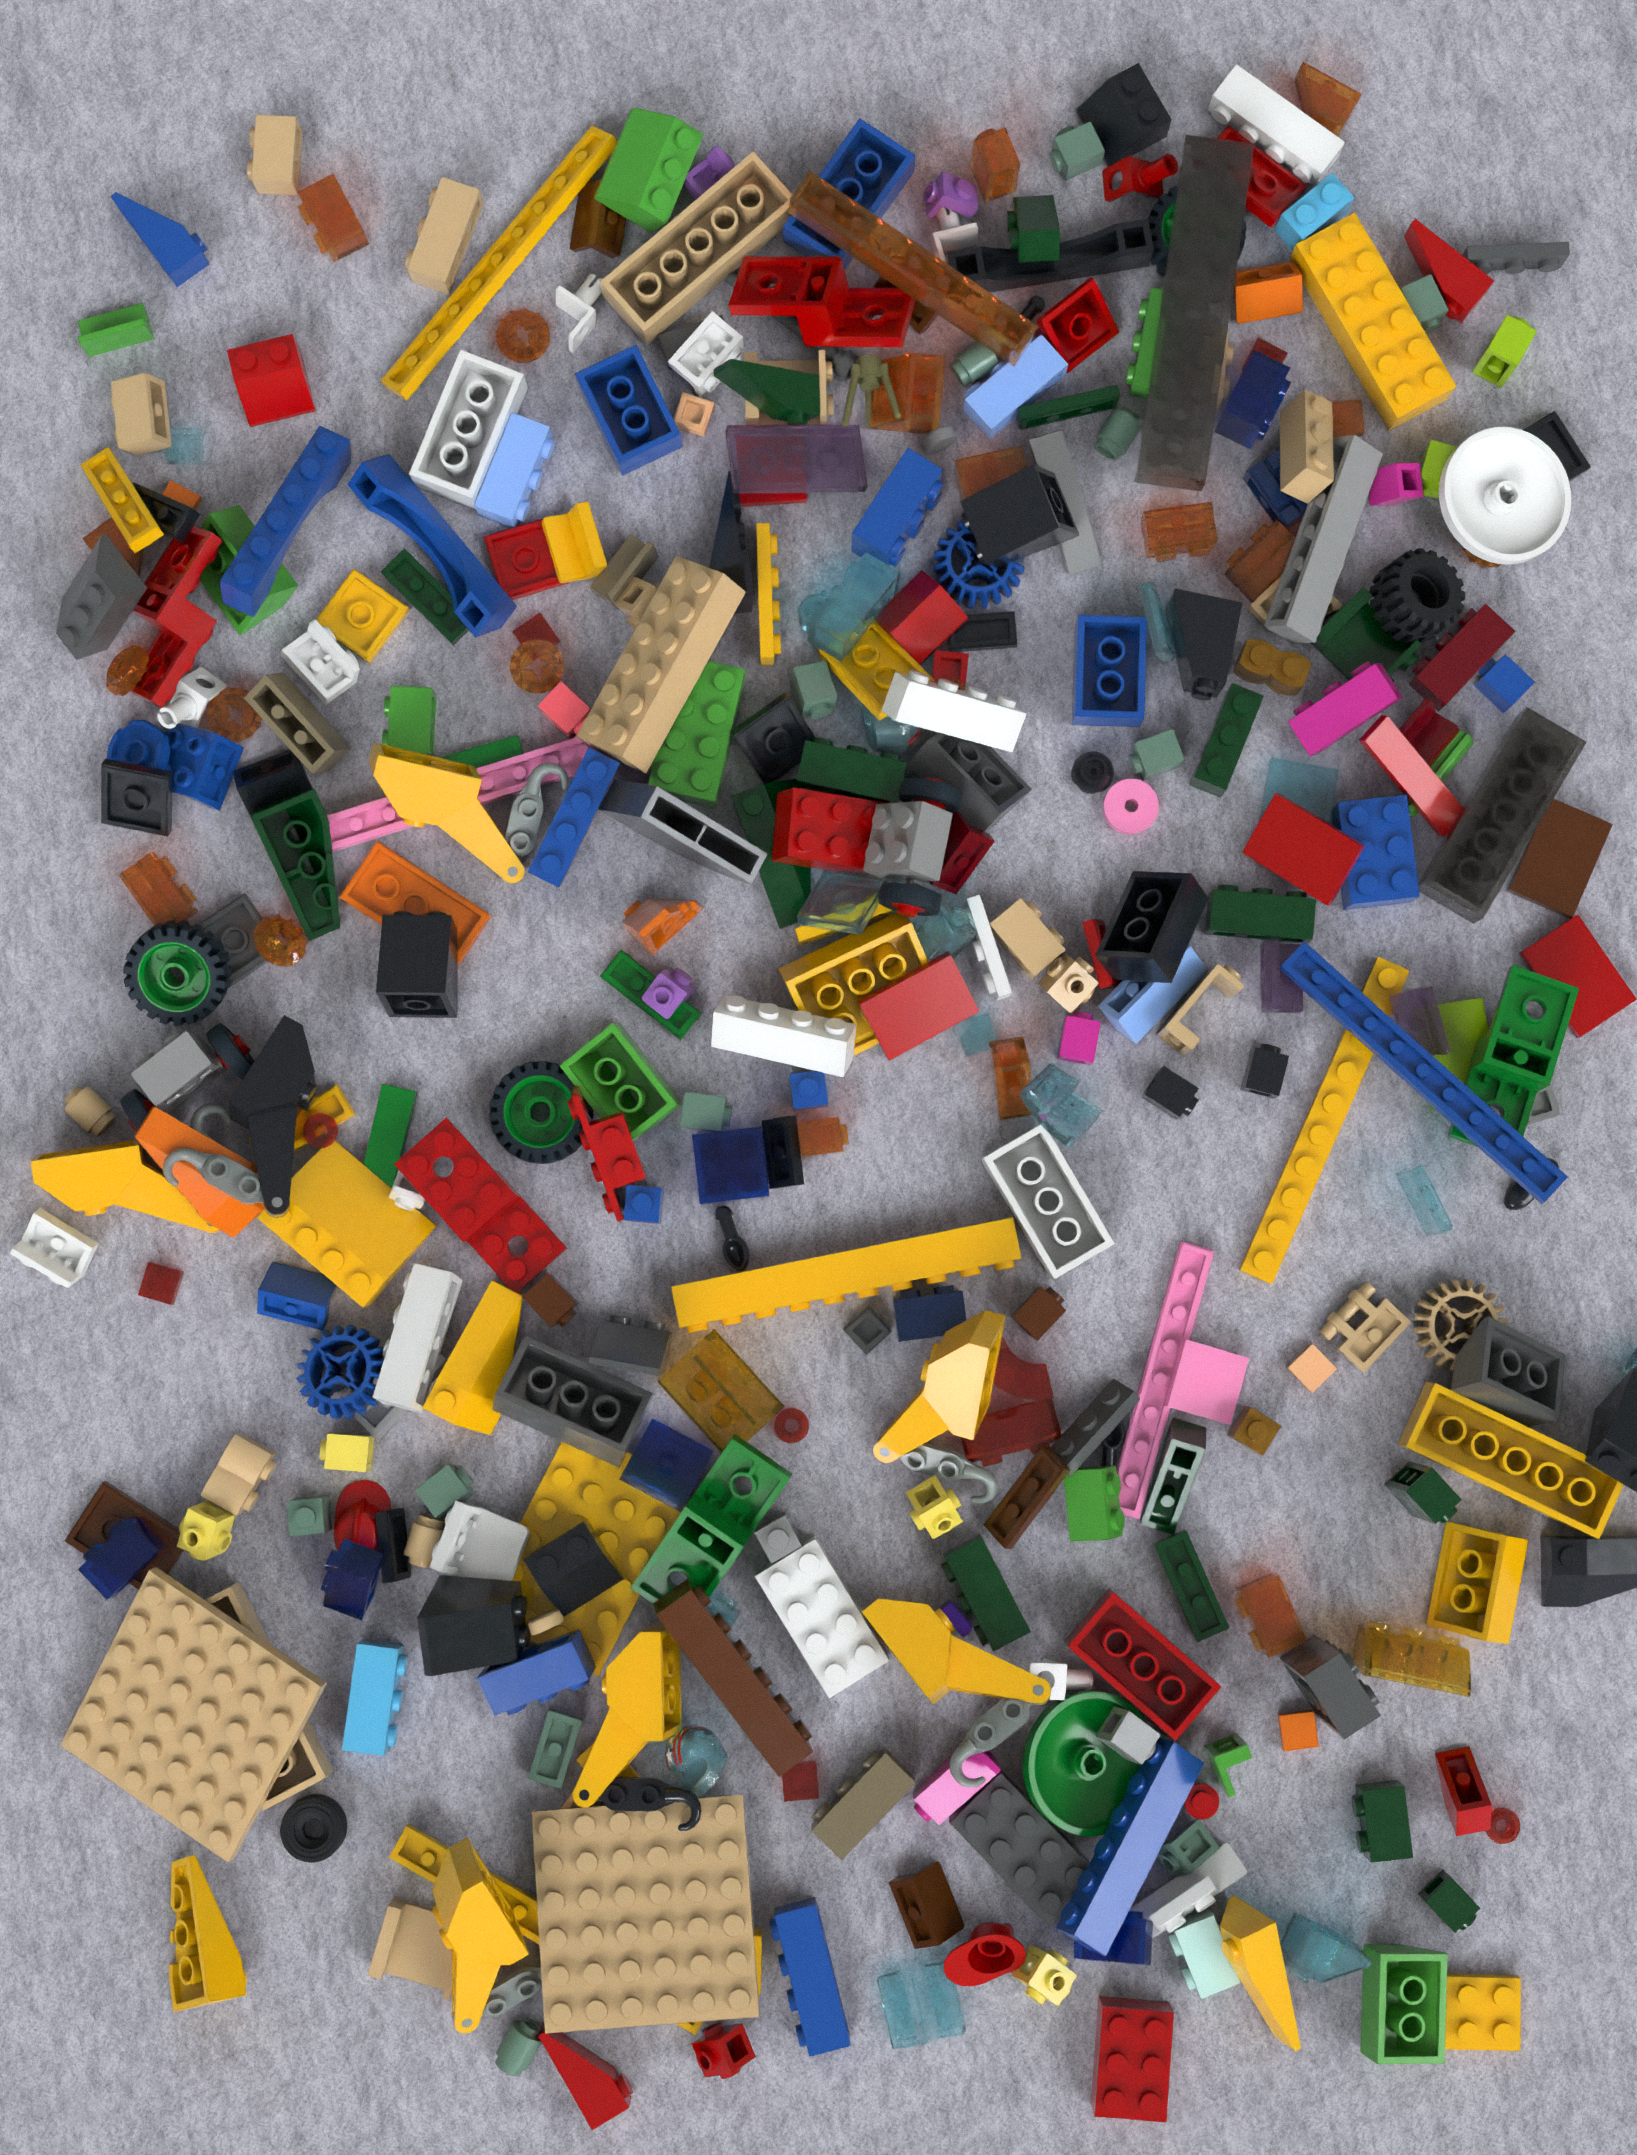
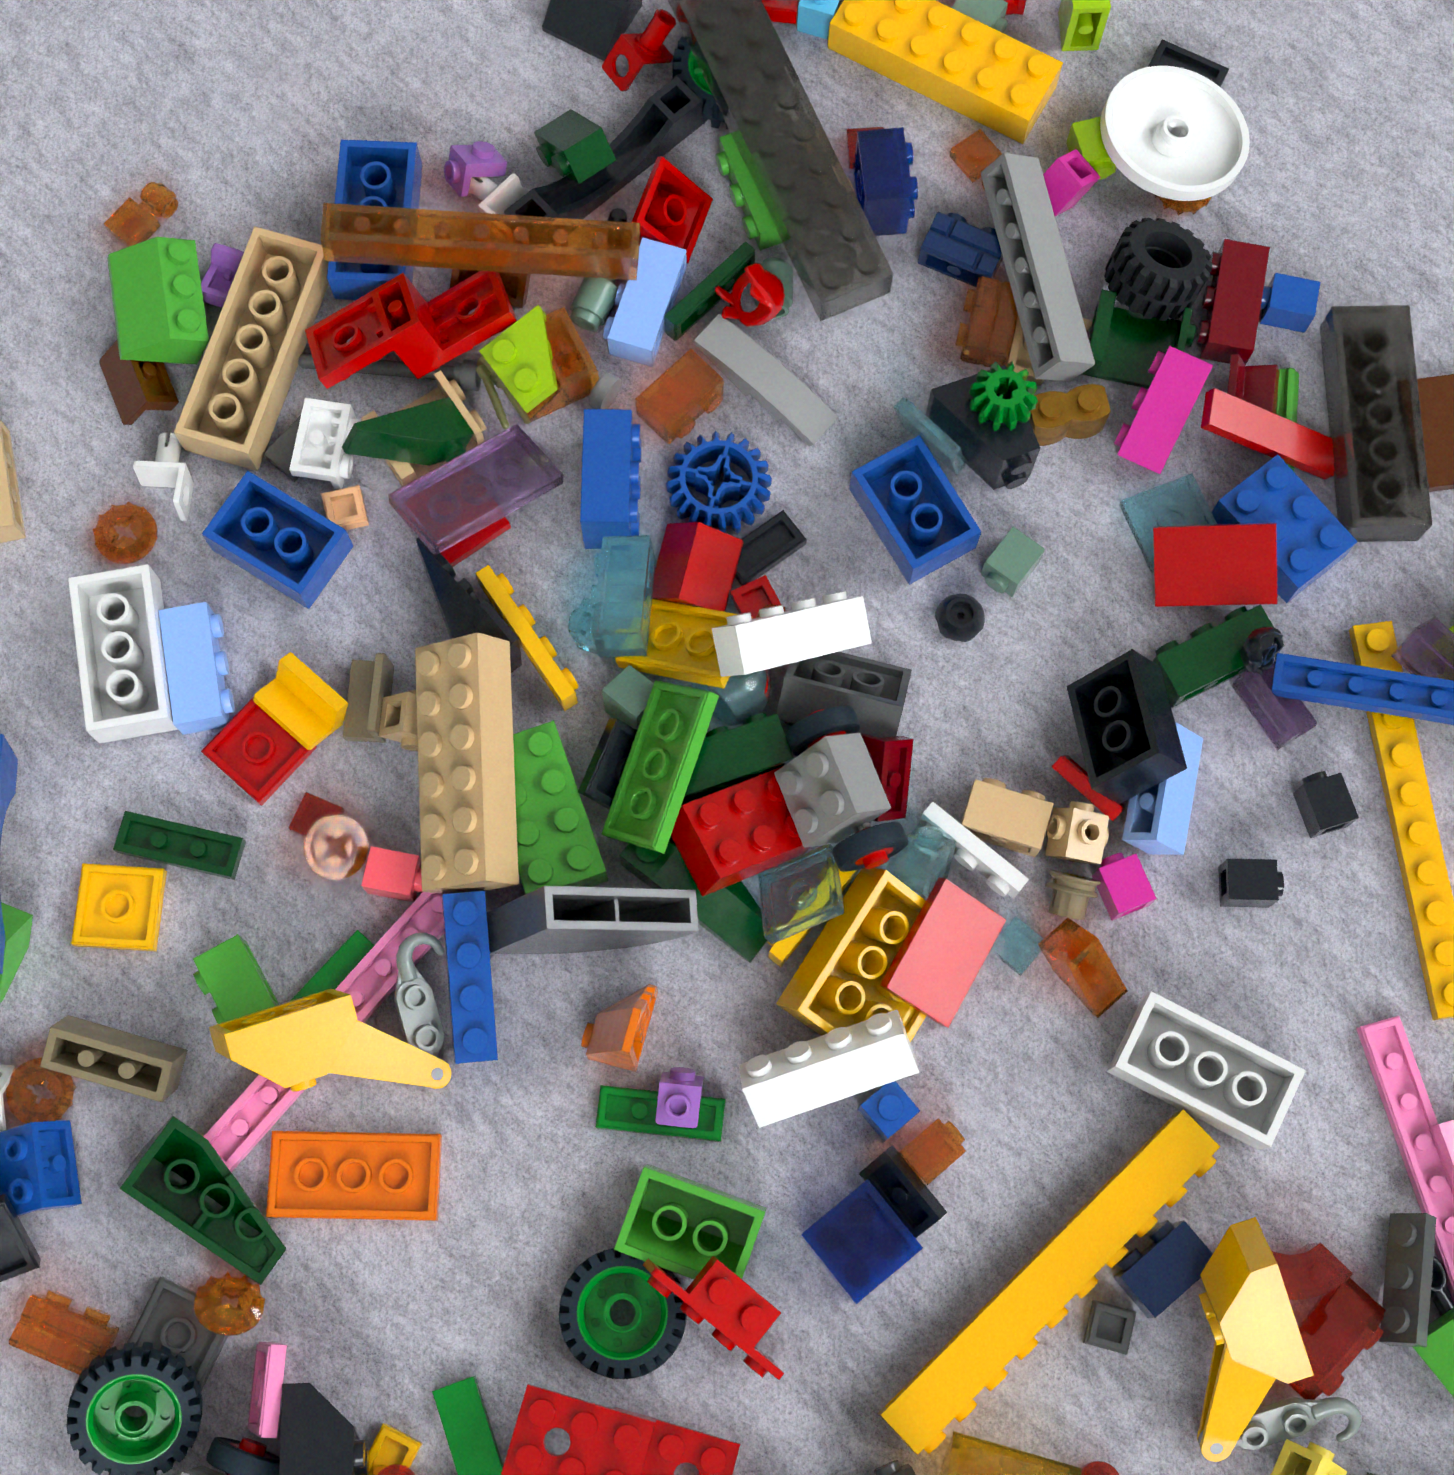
camera: 35 degrees left, 10 degrees down
(271, 780) = (119, 1136): black panel -> none
(272, 1012) = (267, 1389): none -> bright pink tile
(322, 662) = (104, 979): white bracket -> none
(394, 496) = (87, 765): blue arch -> none
(418, 965) = (396, 1236): black slope -> none
(499, 262) = (58, 480): yellow plate -> none
(643, 1204) = (794, 1343): blue brick -> none
(669, 89) = (135, 221): none -> clear orange plate
(705, 1112) = (796, 1201): sand green brick -> none
(734, 1247) = (916, 1326): black piece -> none
(797, 749) = (660, 765): none -> bright green tile
(888, 380) = (523, 359): none -> lime wing
(994, 164) = (498, 111): clear orange brick -> none
(1018, 516) = (732, 414): black slope -> none
(1027, 1497) = (1396, 1400): reddish brown tile -> none
(1037, 1021) = (1071, 894): none -> dark tan piece
(1039, 1312) = (1272, 1192): reddish brown brick -> none
(1057, 1106) = (1150, 966): clear light blue slope -> none
(1076, 150) = (567, 60): sand green brick -> none
(1105, 433) = (764, 288): none -> red piece
(1137, 792) = (1018, 645): bright pink piece -> none
(1178, 1035) = (1211, 816): tan panel -> none
(1179, 531) = (892, 342): clear orange brick -> none
(1226, 740) = (1069, 508): dark green brick -> none
(1234, 627) = (1011, 385): none -> green gear
(1267, 292) = (834, 81): orange panel -> none
(1290, 931) = (1260, 648): none -> black plate
(1306, 446) = (963, 193): tan brick -> none

